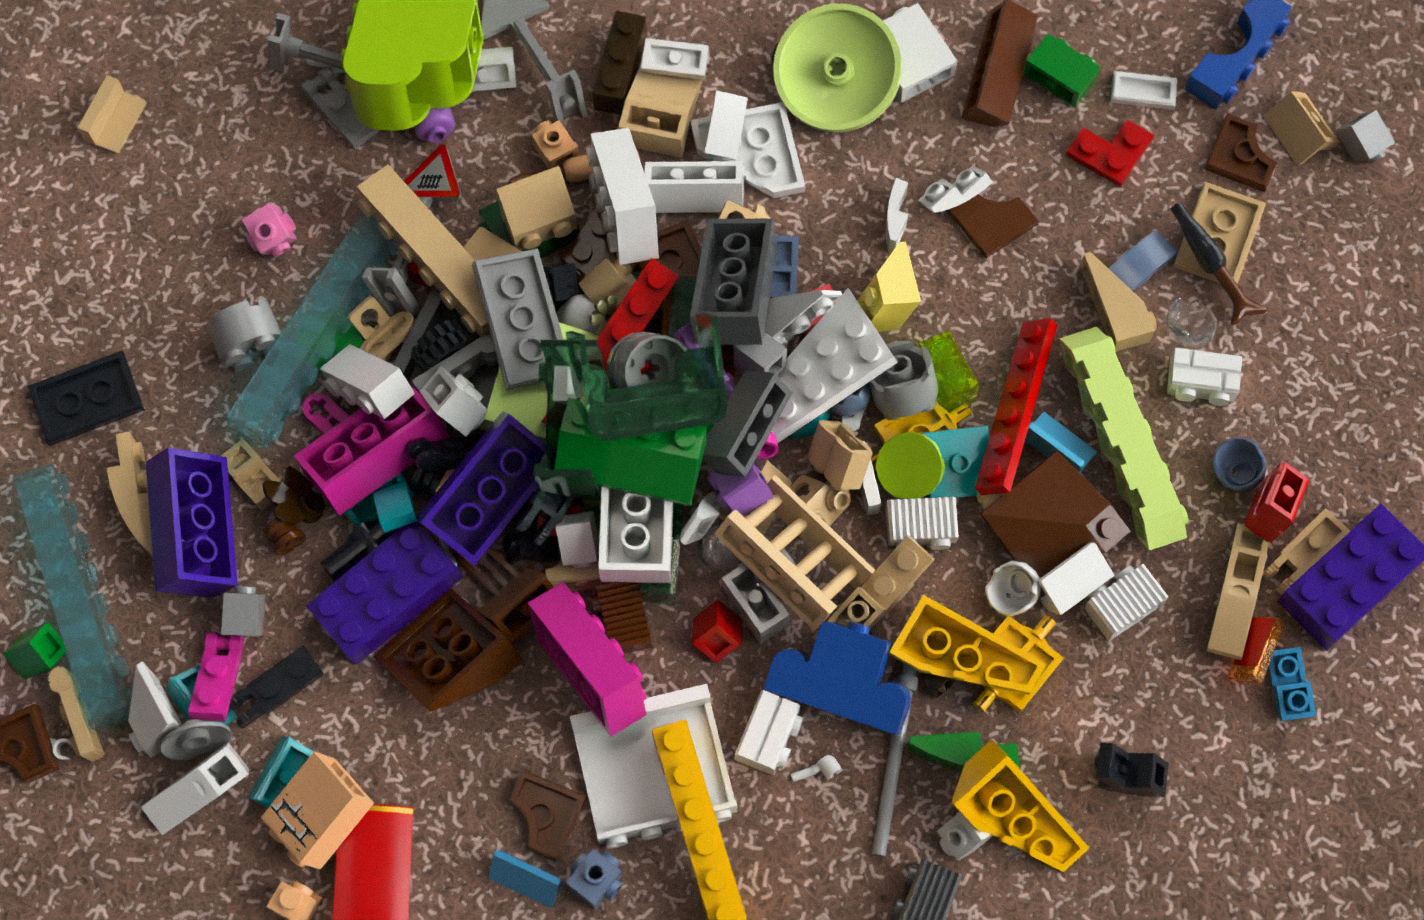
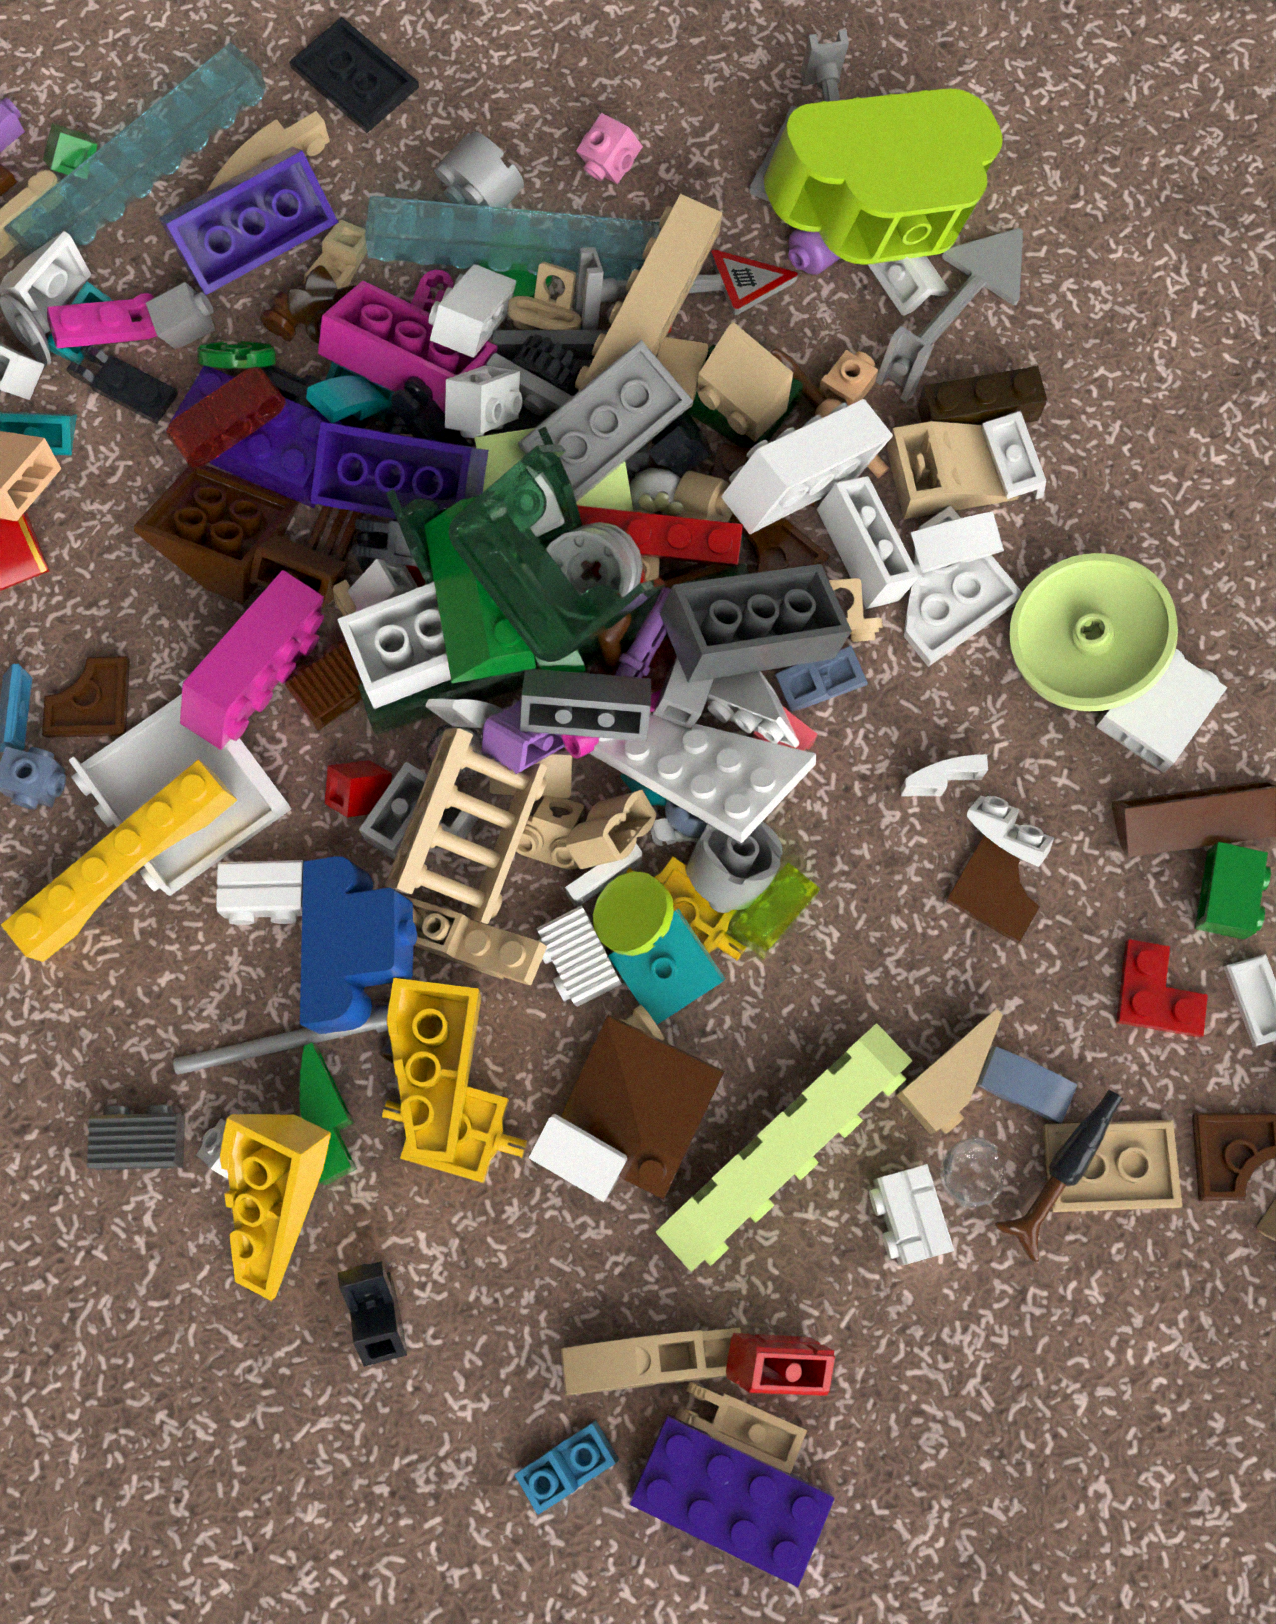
camera: 65 degrees right, 5 degrees up
(306, 580) = (239, 355): none -> green tile
(373, 598) = (225, 417): none -> clear red beam
(827, 765) = (254, 970): white hand -> none
(892, 292) = (834, 801): light yellow slope -> none
(1016, 407) = (763, 1005): red plate -> none
(1019, 581) = (555, 1086): white hair -> none
(1050, 436) = (747, 1077): medium azure panel -> none
(1125, 601) = (582, 1228): white brick -> none
(1239, 453) = (829, 1293): sand blue hair -> none
(1258, 650) = (588, 1411): tile -> none

